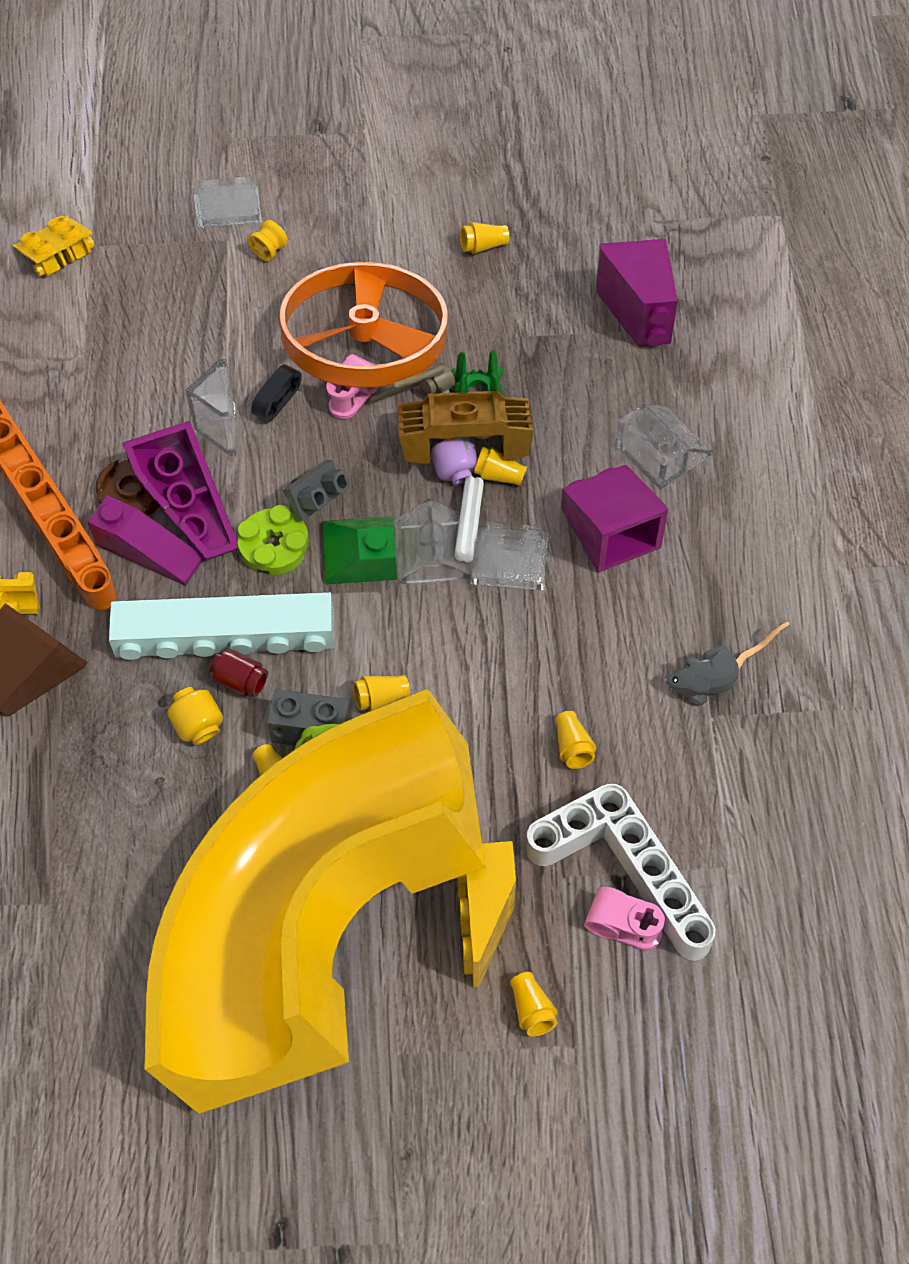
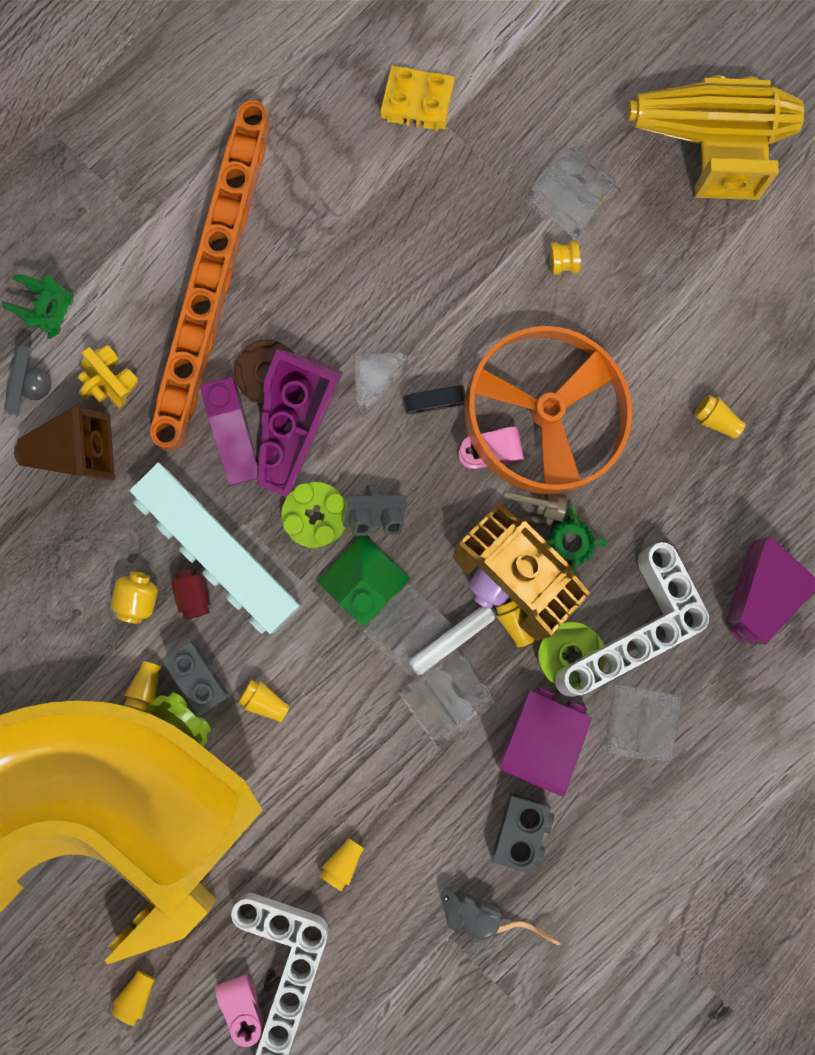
camera: 50 degrees right, 25 degrees up
(290, 77) = (732, 124): none -> yellow piece
(558, 469) = (568, 634): none -> lime plate
(604, 361) = (644, 636): none -> white beam
(665, 591) = (513, 831): none -> dark grey brick

